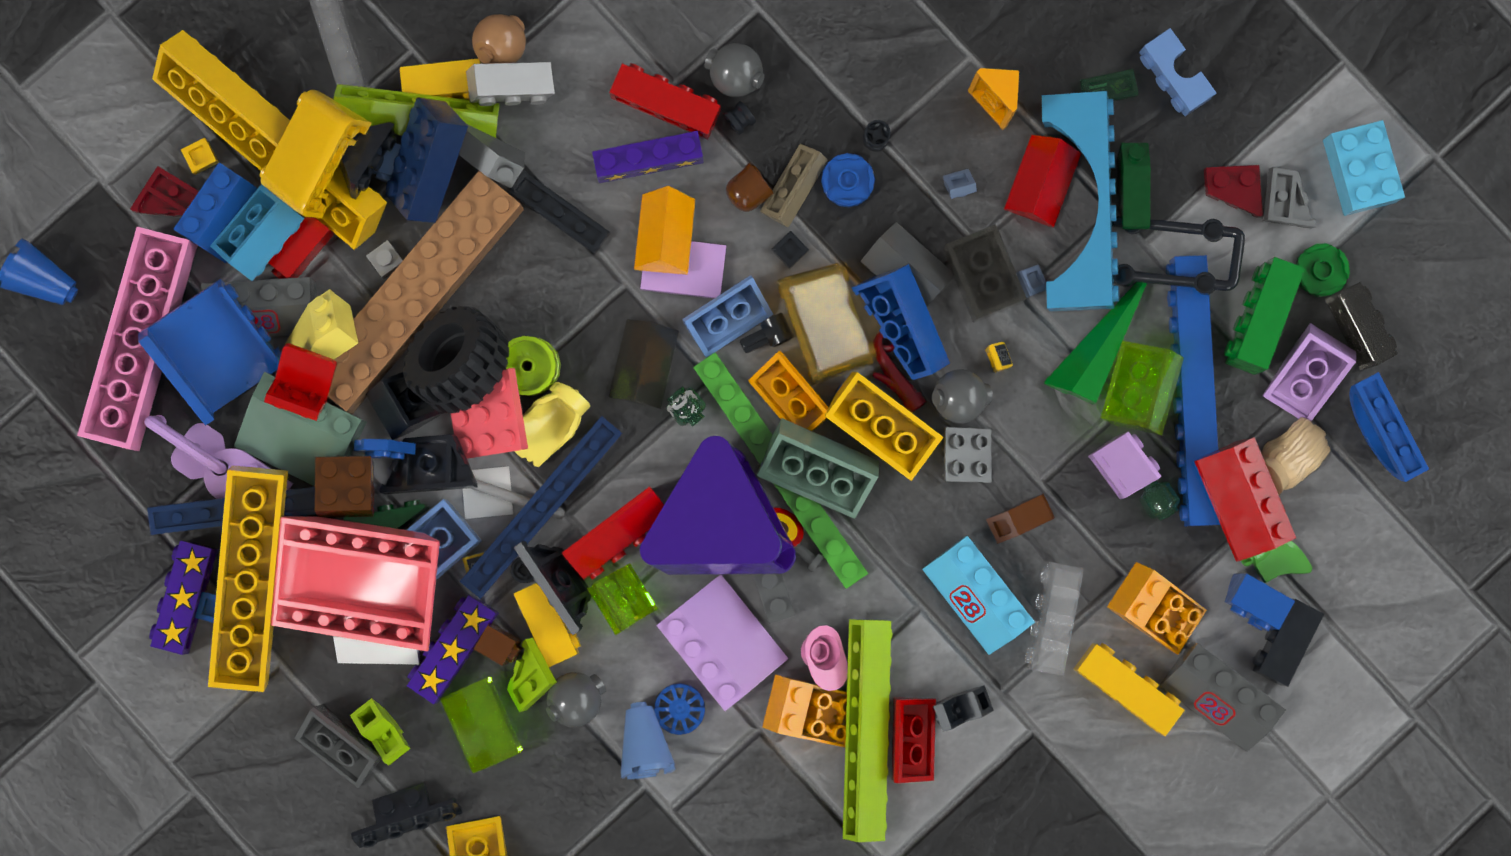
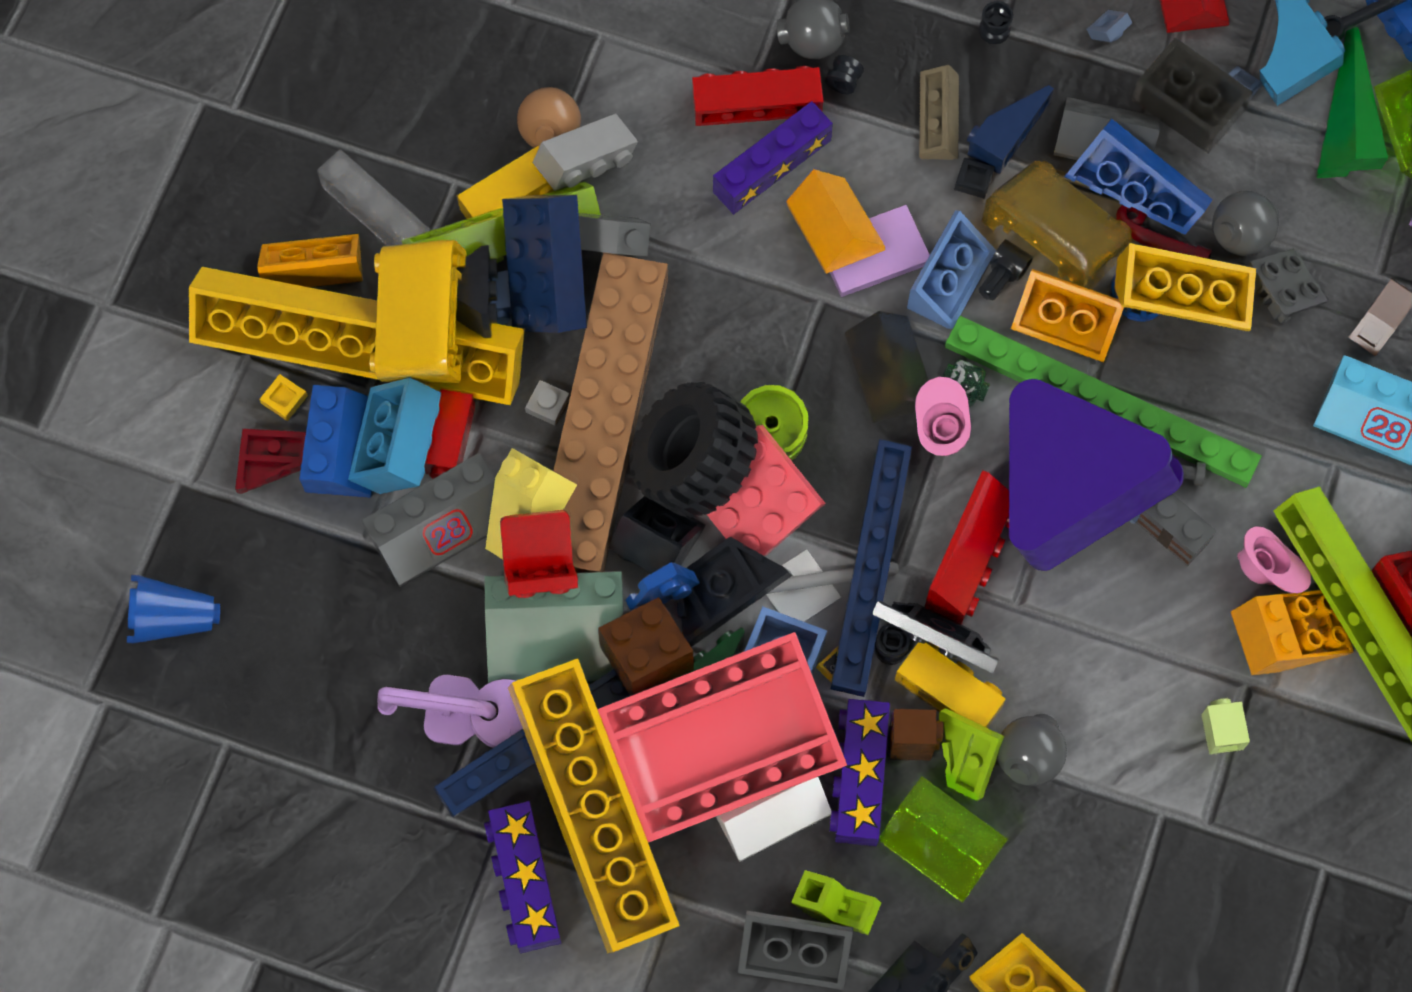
camera: 25 degrees left, 15 degrees down
(125, 372) = (319, 621): bright pink brick -> none
(206, 607) = (561, 873): blue plate -> none
(211, 349) = (413, 580): blue panel -> none
(272, 58) = (312, 261): none -> light orange slope
(552, 422) = (833, 469): light yellow hair -> none
(559, 212) = (713, 262): black tile -> none
(622, 598) = (1015, 621): clear neon green bracket -> none
(644, 744) = (1138, 761): medium blue cone -> none
(653, 426) = (942, 416): none -> bright pink piece
(679, 708) = (1149, 706): blue wheel -> none
(721, 752) = (1225, 726): none -> yellowish green brick
(722, 642) = (1152, 611): lavender slope -> none
(748, 189) = (897, 134): reddish brown helmet -> none
(818, 468) = (1145, 371): sand green slope -> none
(831, 227) = (1007, 129): none -> dark blue slope
(848, 180) = (991, 81): blue tile -> none
(998, 357) = (1254, 174): yellow slope -> none

